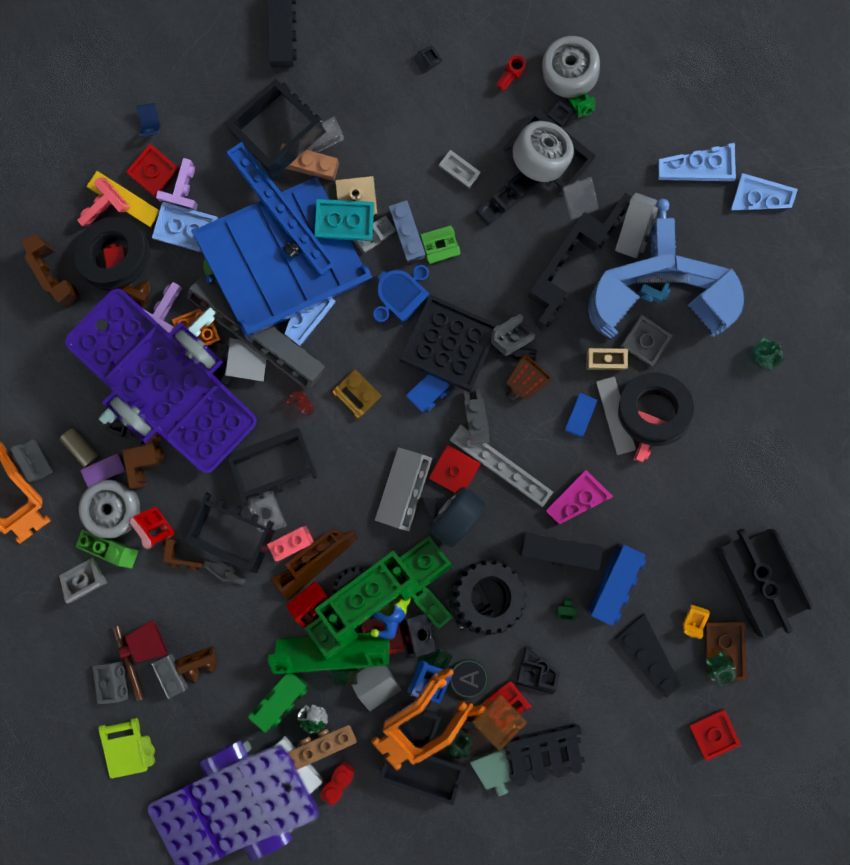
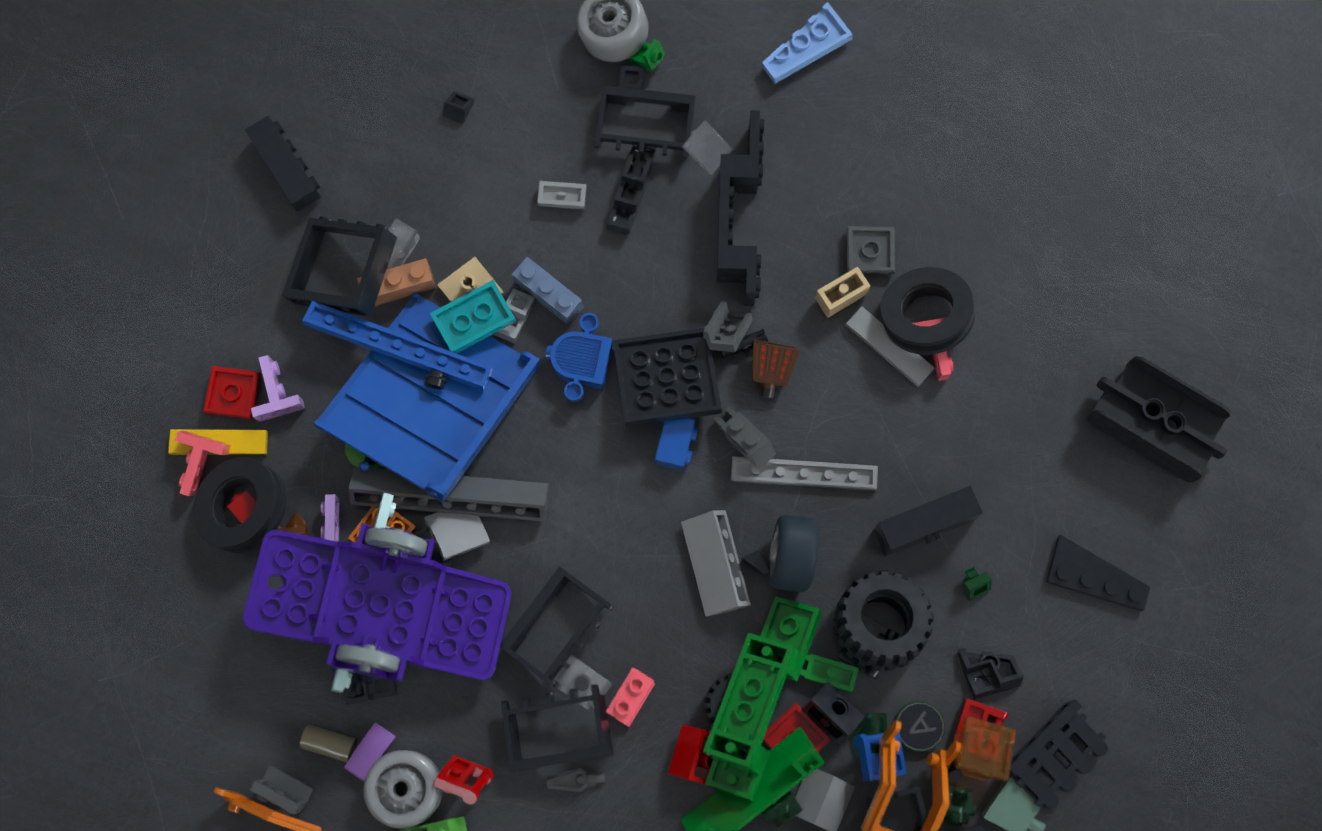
camera: 30 degrees left, 10 degrees down
(36, 250) = (154, 554): reddish brown plate -> none
(143, 457) = (407, 707): reddish brown bracket -> none
(148, 119) = (195, 341): dark blue bracket -> none
(169, 550) = (497, 793): reddish brown bracket -> none
(176, 223) = (294, 435): light blue plate -> none
(303, 324) = (496, 452): light blue wing -> none
(304, 405) = (550, 538): clear red bracket -> none
(312, 561) = (666, 705): reddish brown wedge -> none
(361, 390) = (601, 486): pearl gold plate -> none
(391, 615) = (791, 708): piece -> none
(444, 234) = (591, 270): bright green piece -> none
(454, 469) = (756, 508): red plate -> none
(511, 73) = (554, 68): red axle -> none
(543, 151) = (638, 121): light grey wheel -> none
(577, 498) = (907, 456): dark pink wing -> none
(580, 415) = (853, 368): blue slope -> none
(616, 584) = (1010, 519): blue brick -> none
(637, 225) = (784, 137): light grey brick -> none
(649, 293) = (845, 199): dark azure bracket -> none
(695, 621) = (1119, 508): light orange bracket -> none
(714, 734) = (1222, 617): red plate -> none
(716, 306) = (808, 218): medium blue piece -> none
(721, 669) = (1181, 539): clear green brick -> none
(730, 639) = (1171, 520): reddish brown plate -> none
(759, 193) = (889, 34): light blue wing -> none
(768, 354) = (1004, 186): clear green brick -> none

